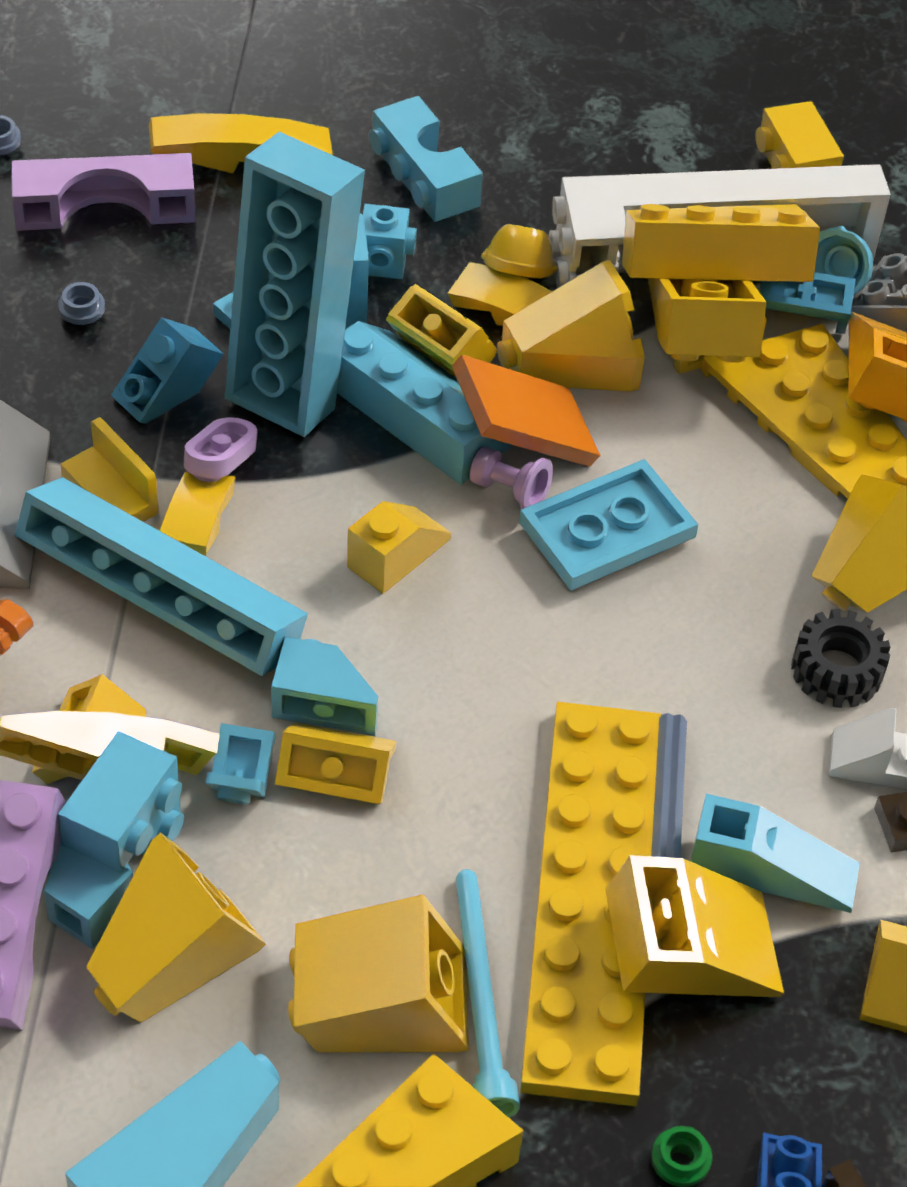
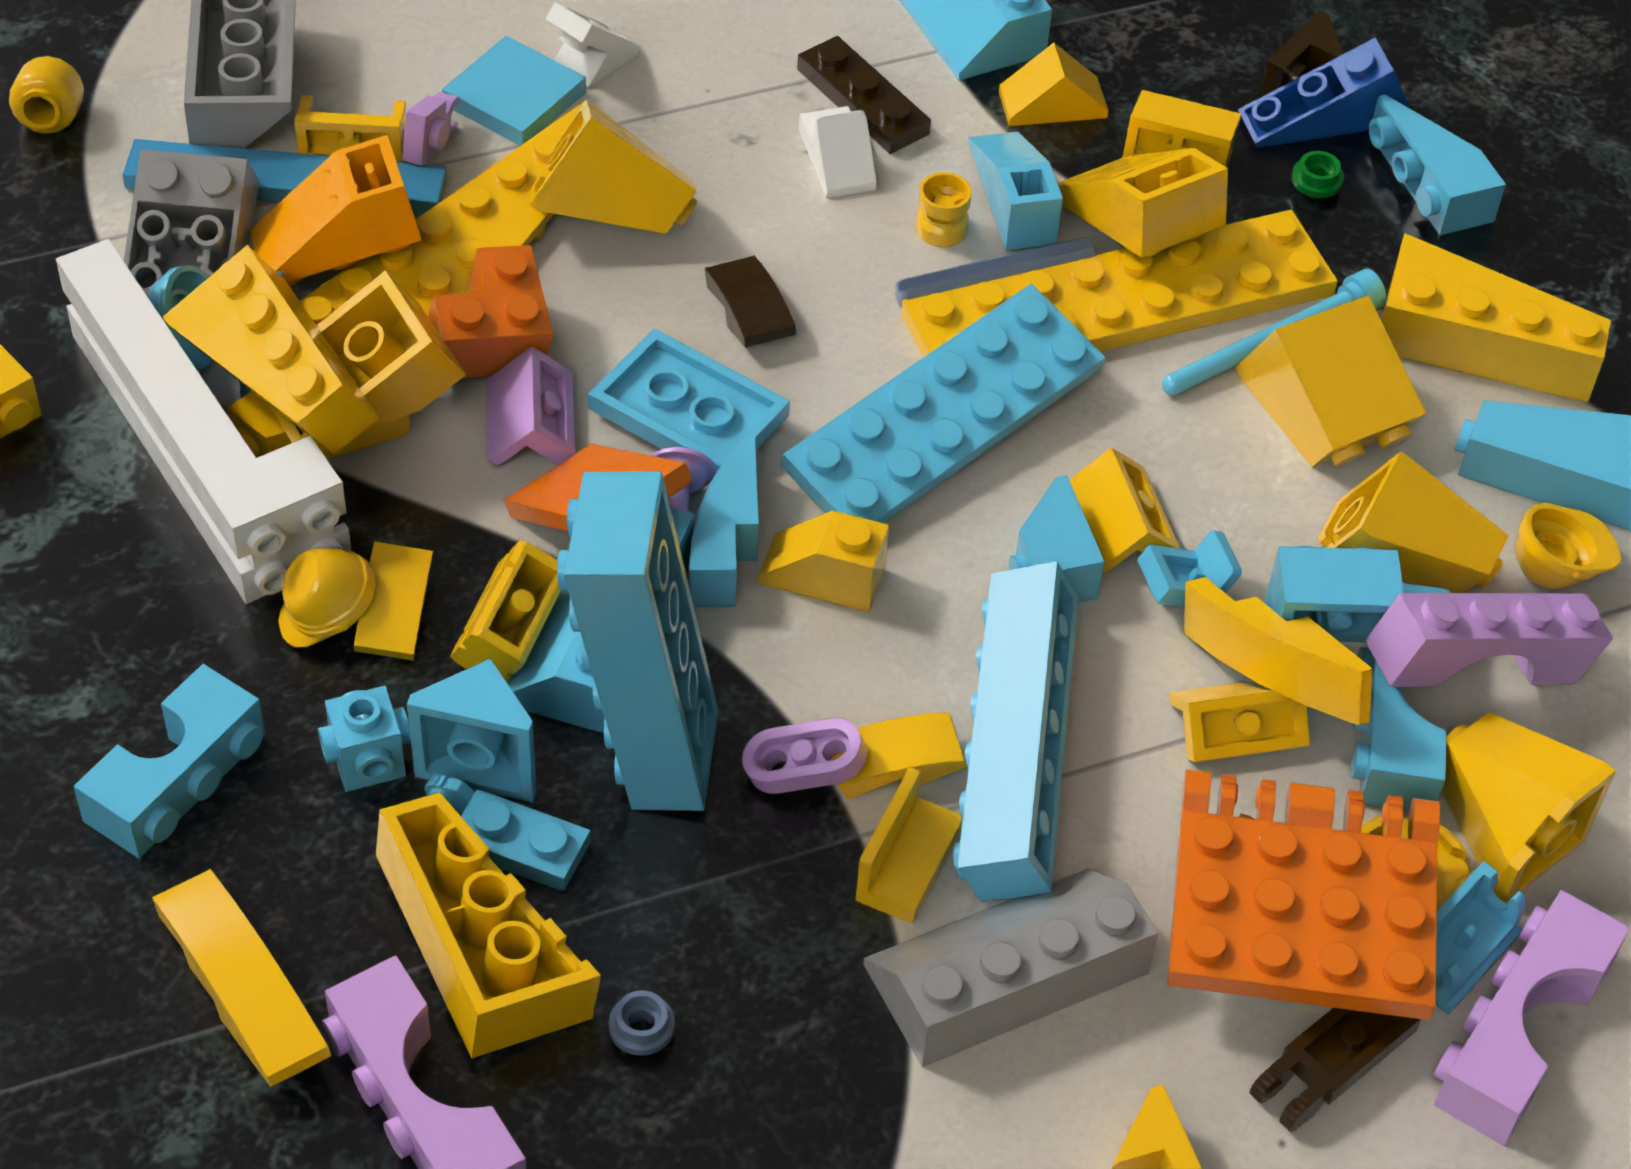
camera: 115 degrees left, 0 degrees up
(86, 1072) = (1564, 546): none -> yellow hat
(166, 370) = (712, 864): dark azure slope -> none
(170, 239) = (484, 943): none -> yellow wedge
(466, 494) = (725, 528): none -> medium azure slope
(511, 682) = (944, 410): none -> medium azure plate
(577, 335) = (434, 496): yellow slope -> none
(648, 434) = (530, 407): none -> lavender panel
(703, 605) = (751, 301): none -> dark brown slope
(746, 430) = (498, 315): none -> orange brick
(762, 781) = (943, 209): none -> yellow wheel
(787, 1047) = (1172, 123): none -> yellow hinge
(836, 680) = (750, 176): black tyre -> none

